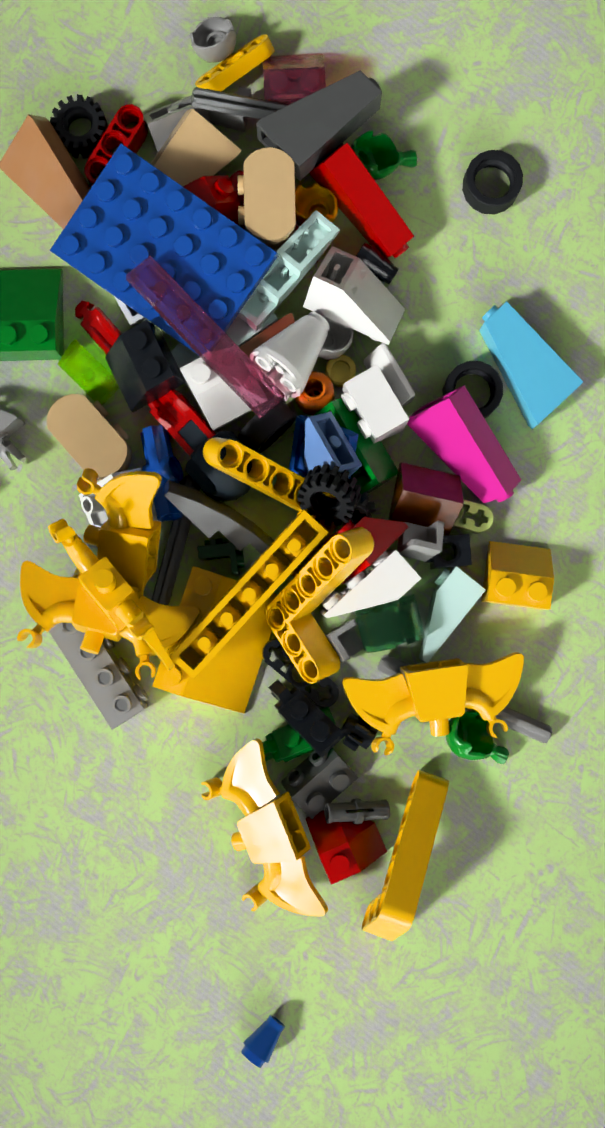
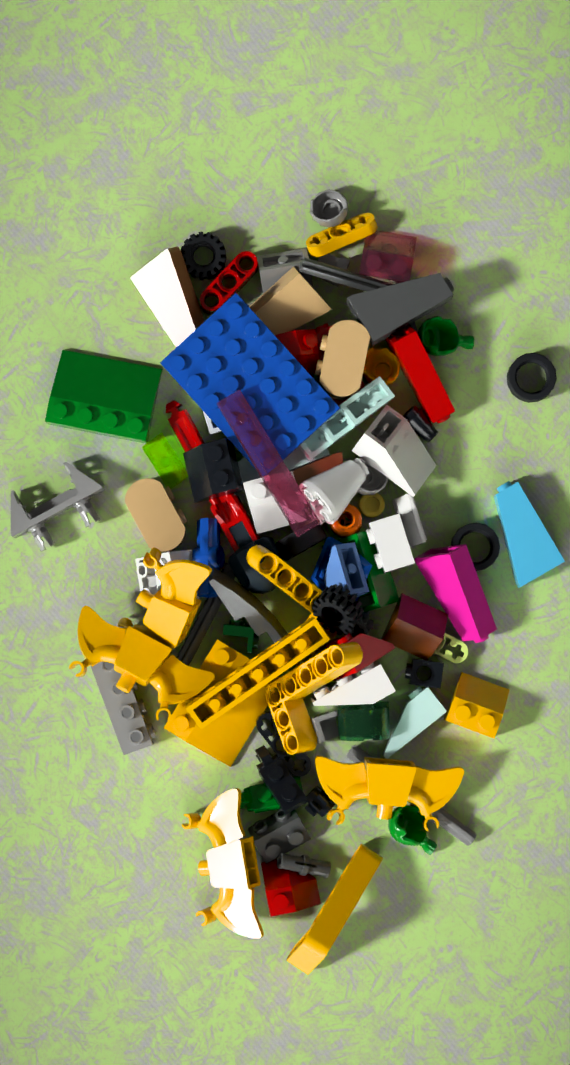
camera: 15 degrees right, 0 degrees up
(109, 589) = (152, 647): yellow torso -> none
(262, 1041) = (188, 1030): blue cone -> none
(421, 541) = (403, 661): light grey panel -> none

